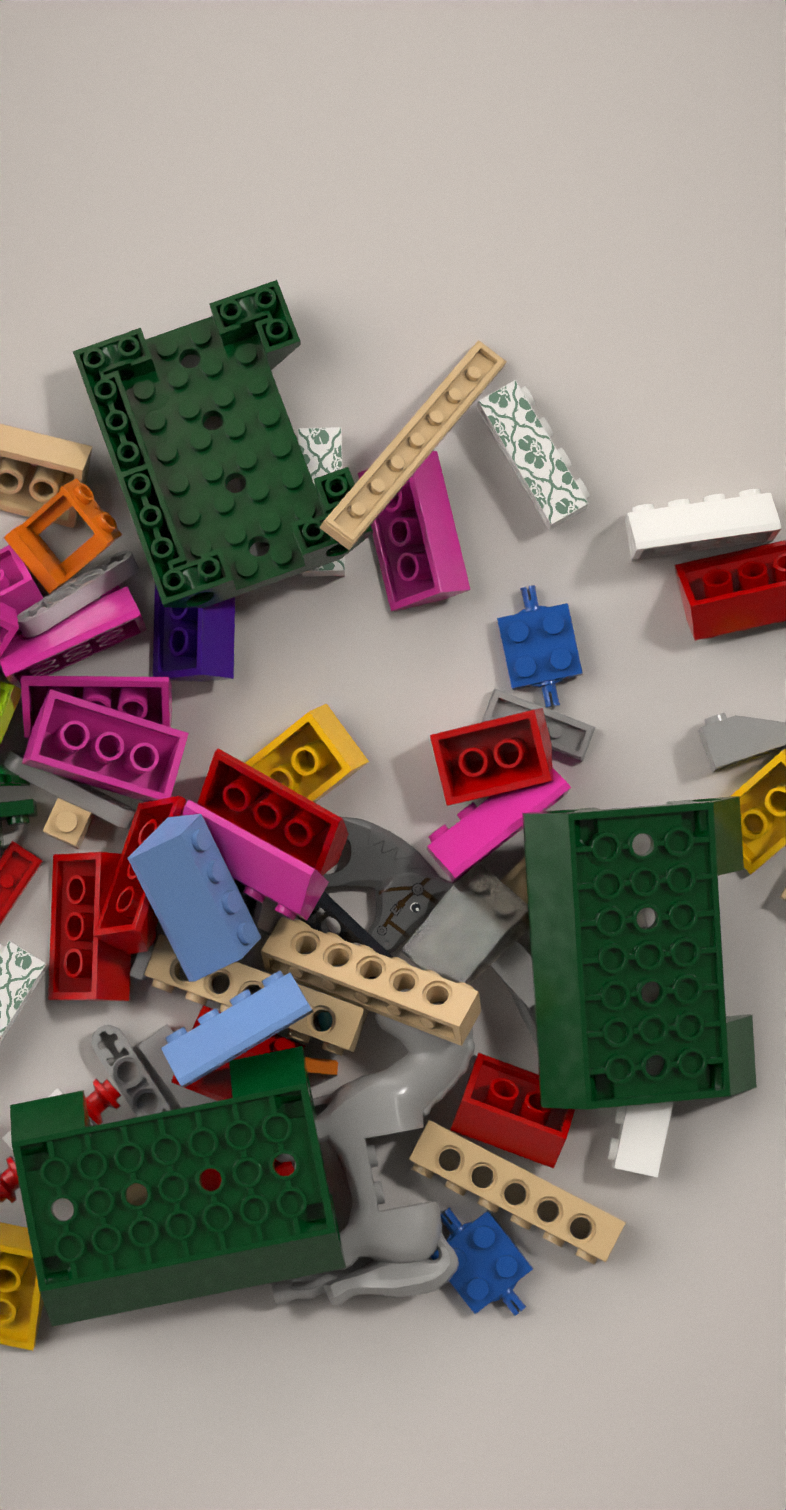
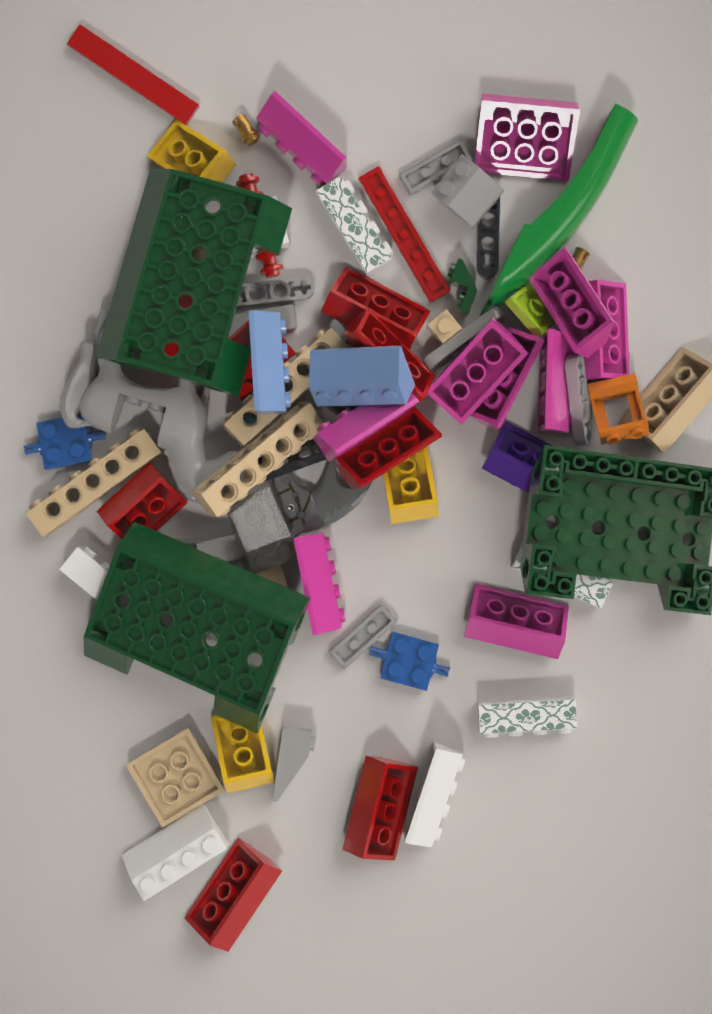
camera: 120 degrees right, 5 degrees up
(322, 1066) = (225, 405): orange tile -> none
(412, 445) = (567, 645): tan tile -> none
(493, 756) = (355, 599): red slope -> none

